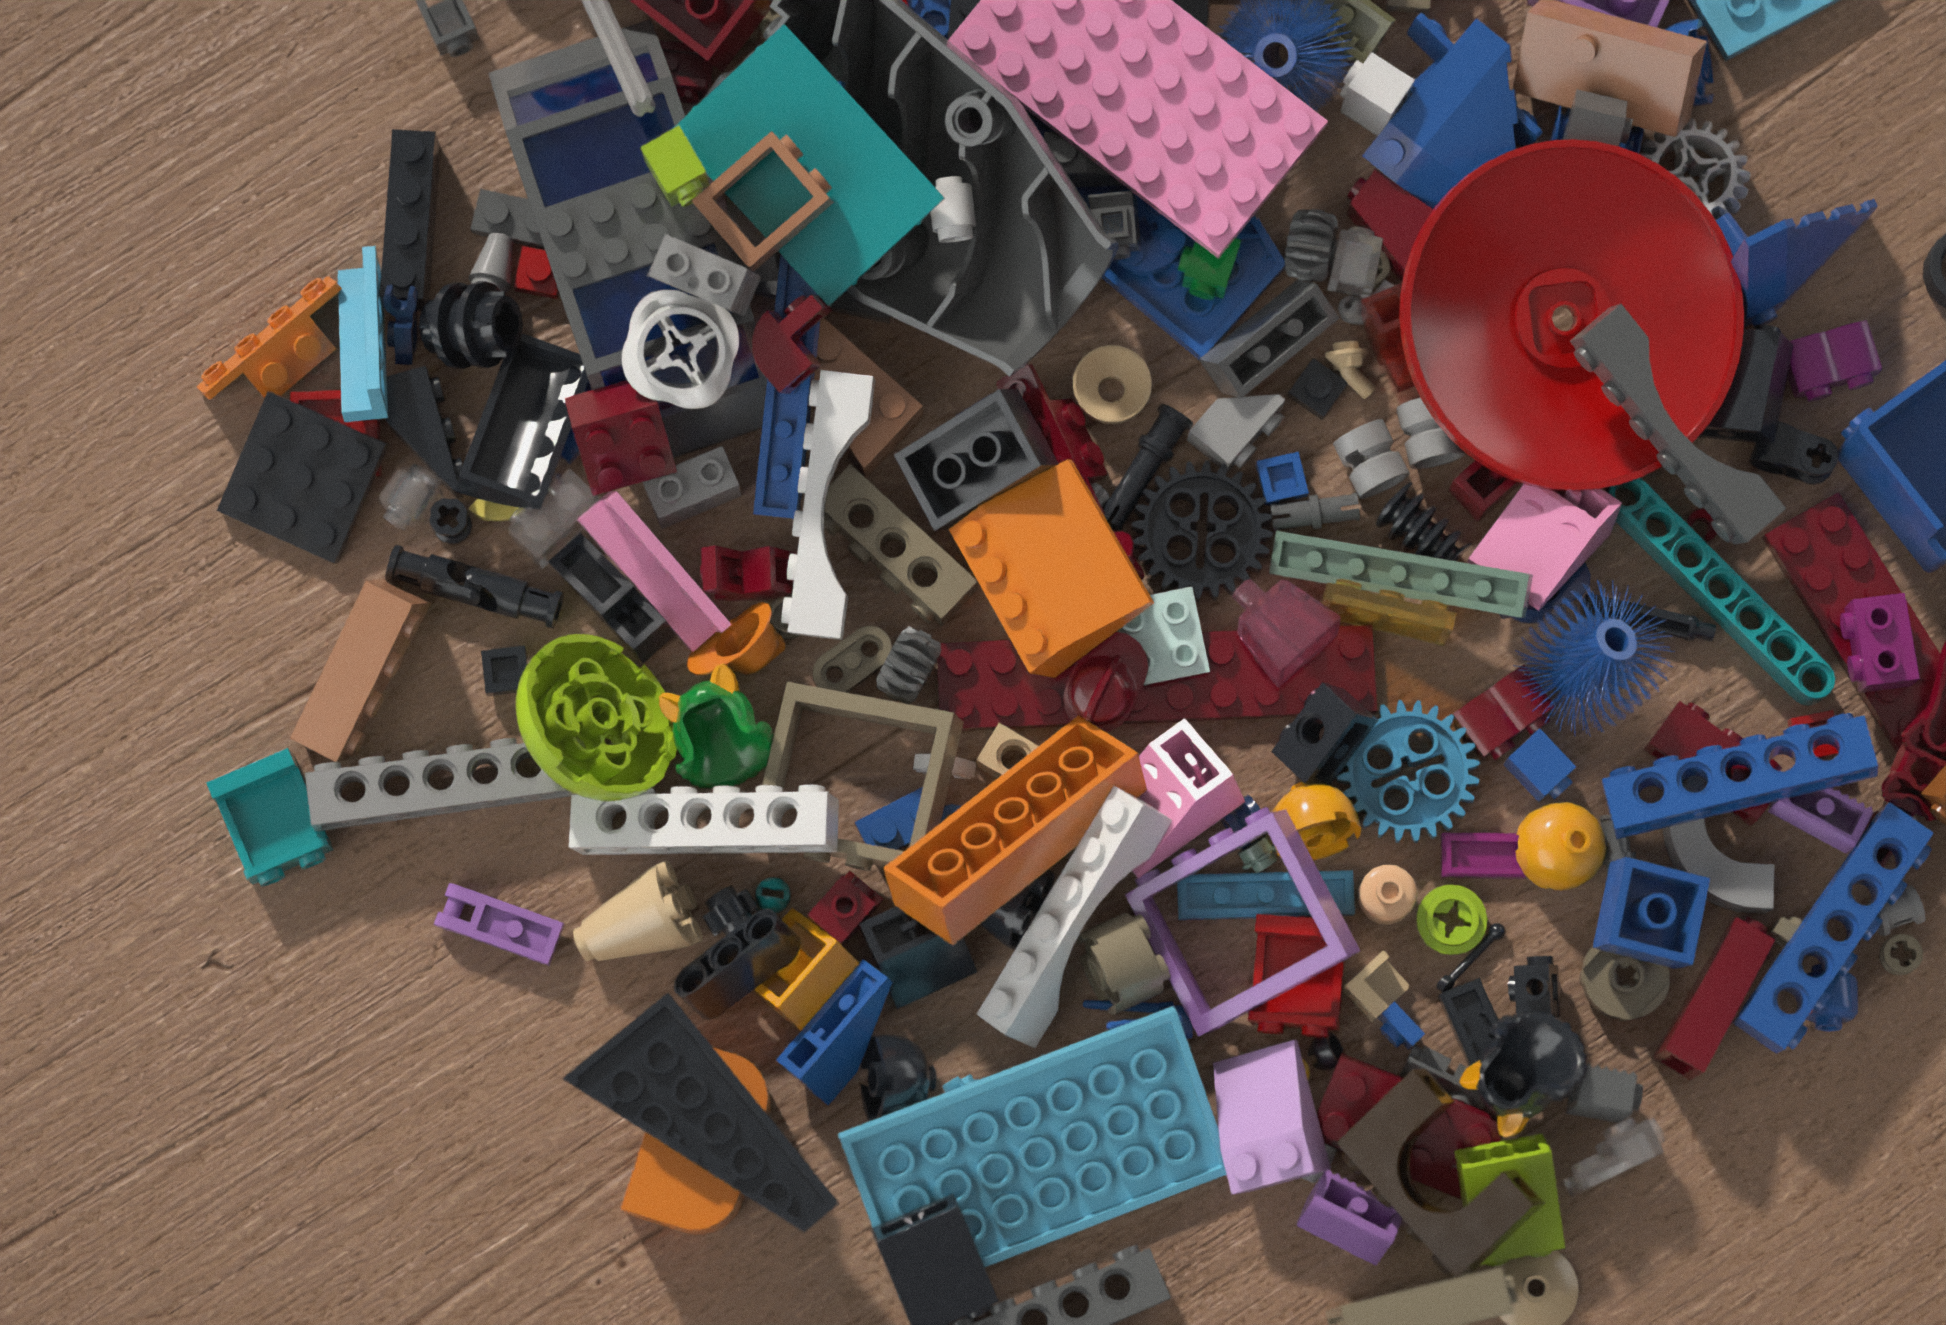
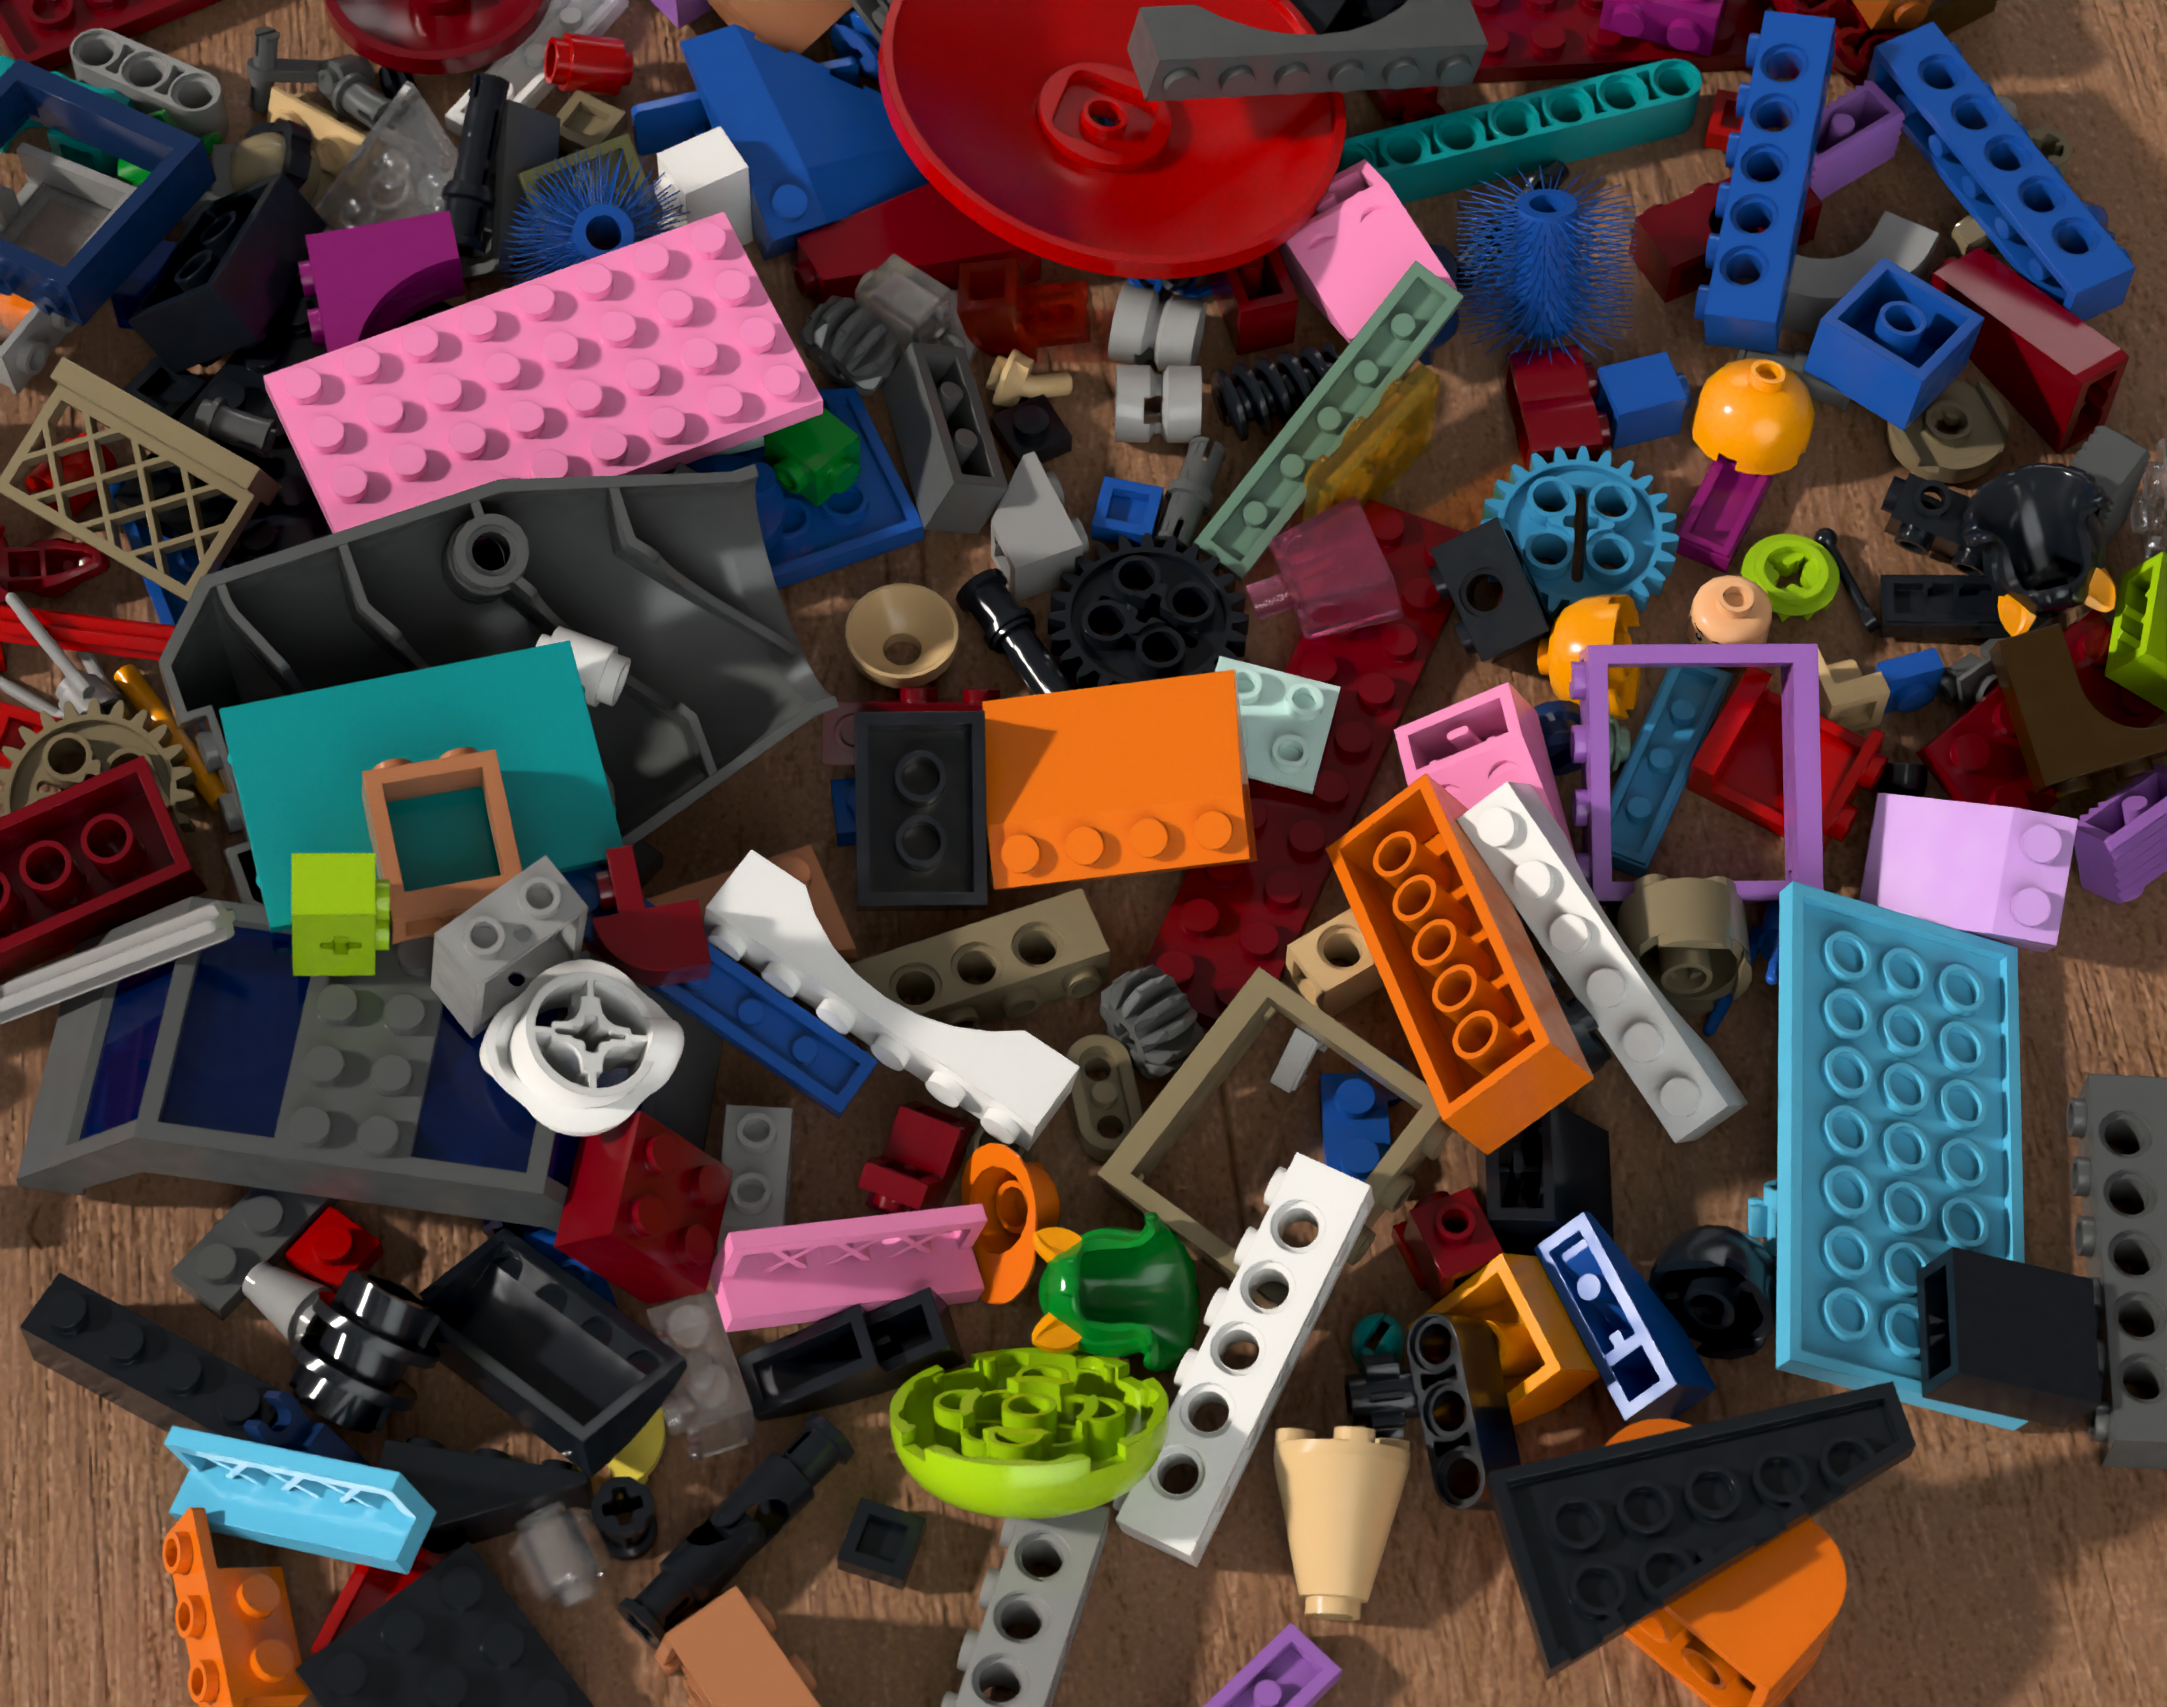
camera: 65 degrees left, 20 degrees down
(1107, 682) = (1298, 802): dark red piece -> none

